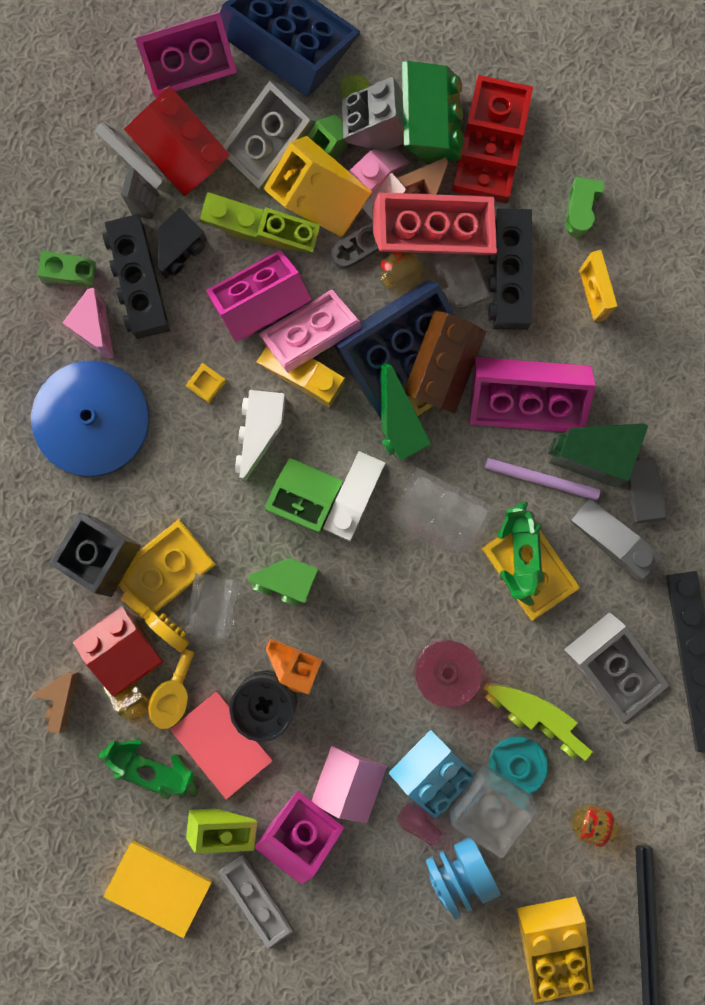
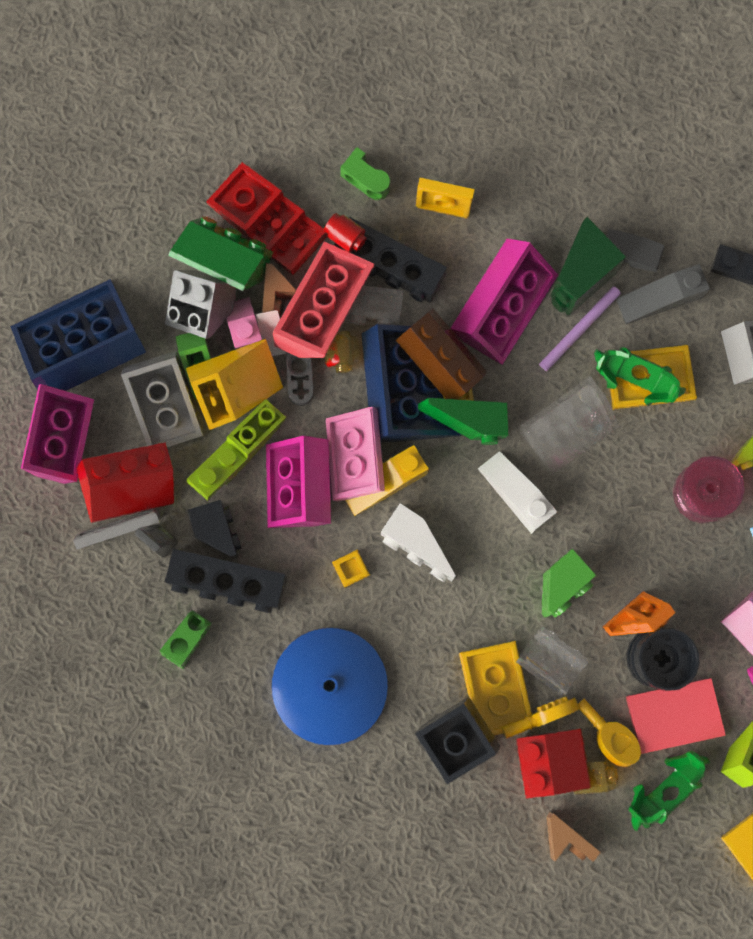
camera: 60 degrees left, 5 degrees down
(90, 323) = (252, 641): bright pink slope -> none
(303, 495) = (496, 532): bright green slope -> none
(352, 83) = (156, 309): clear neon green piece -> none
(511, 211) = (345, 232): none -> red brick

